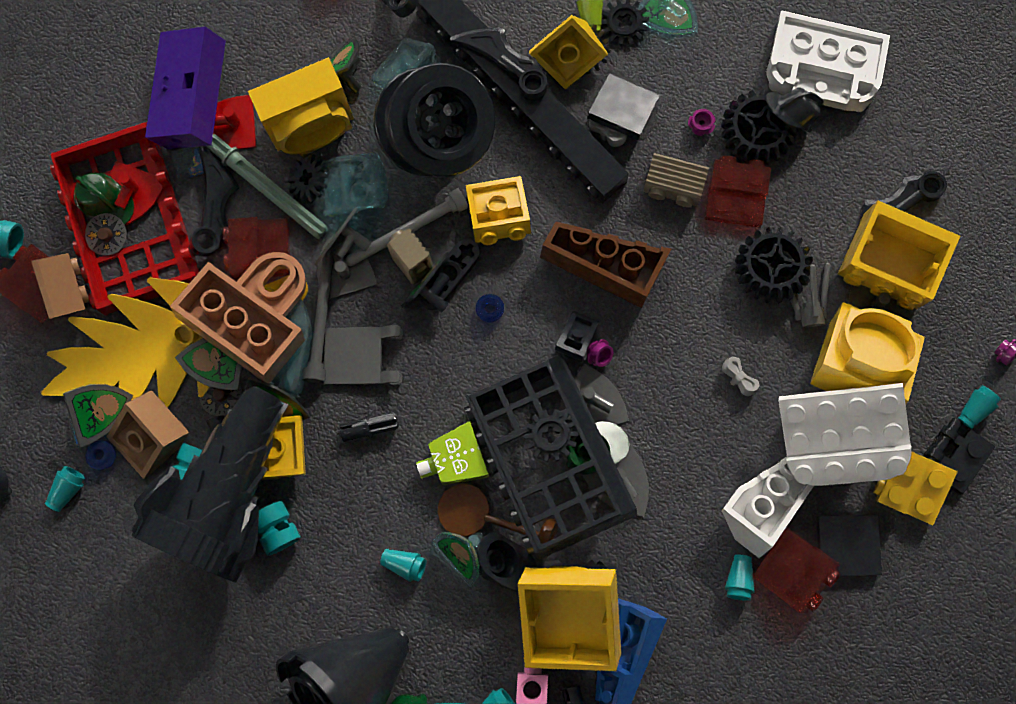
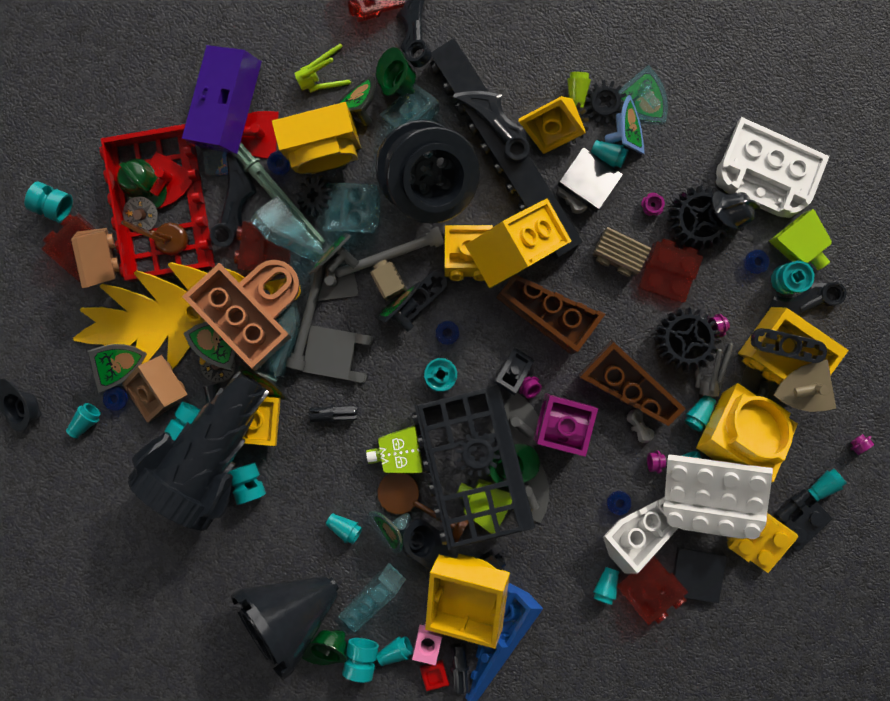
camera: 10 degrees right, 10 degrees up
(144, 254) = (168, 238): none -> reddish brown piece
(258, 142) = (271, 163): none -> clear blue plate
(278, 218) = (282, 228): none -> clear light blue slope
(281, 50) = (307, 75): none -> lime plant
(380, 29) = (395, 74): none -> dark green piece
(452, 646) = (372, 597): none -> clear light blue slope
(482, 366) = (450, 374): none -> teal wheel
(552, 182) = (518, 242): none -> yellow container
(564, 492) = (479, 502): none -> lime torso
(641, 74) = (610, 153): none -> teal cone
(649, 384) = (565, 424): none -> magenta brick
(655, 43) = (628, 128): none -> shield
(714, 323) = (625, 379): none -> reddish brown wedge
(725, 477) = (611, 502): none -> clear blue plate
(768, 415) = (656, 461): none -> magenta plate
(808, 349) = (700, 413): none -> teal cone
(810, 239) = (721, 324): none -> magenta plate
(832, 172) = (750, 264): none -> clear blue plate
(879, 173) = (792, 277): none -> teal wheel
(883, 132) = (804, 240): none -> lime torso
(911, 250) = (804, 356): none -> black beam
(924, 288) = (808, 388): none -> dark tan shield

